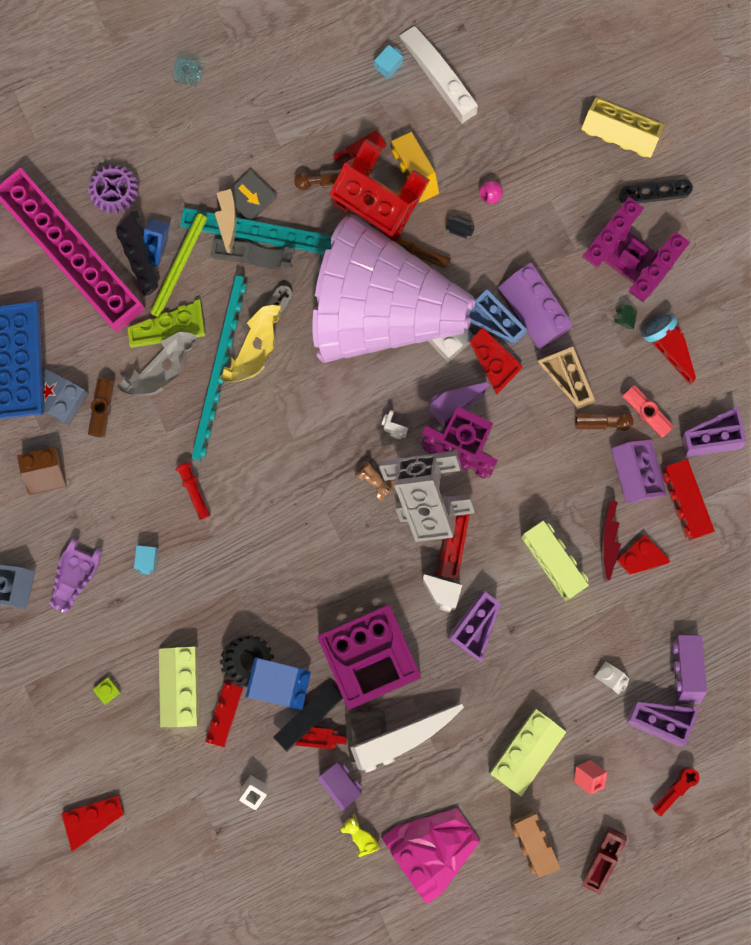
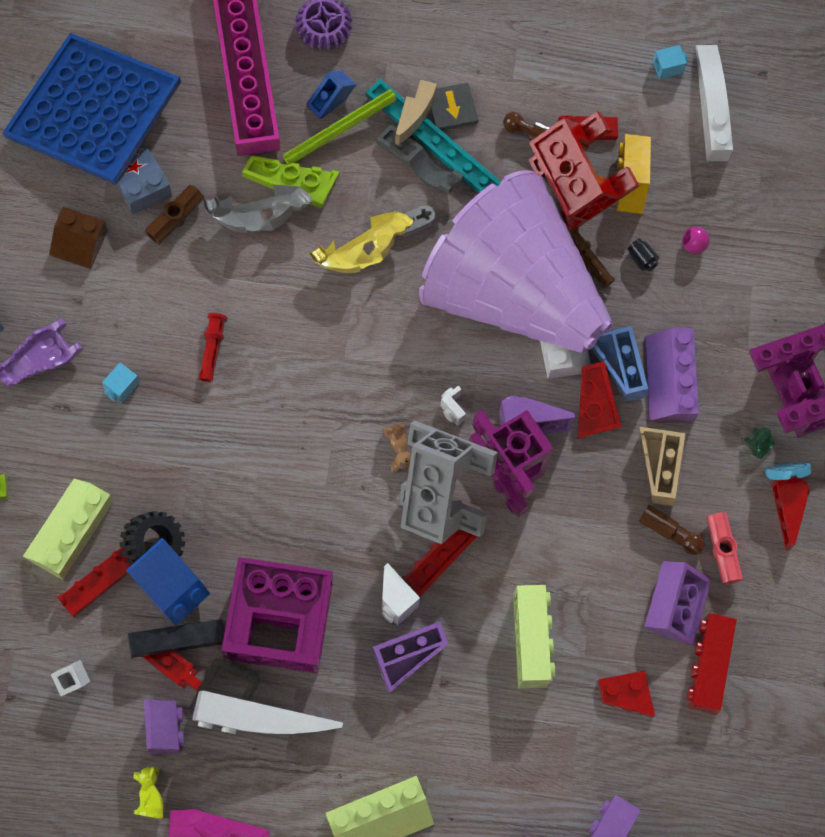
camera: 20 degrees right, 10 degrees down
(137, 253) = (306, 93): black wing -> none
(222, 360) = (324, 237): teal plate -> none
(609, 548) = (600, 660): dark red slope -> none
(612, 677) = (518, 798): white bracket -> none
(716, 435) = (780, 614): medium lavender wedge -> none

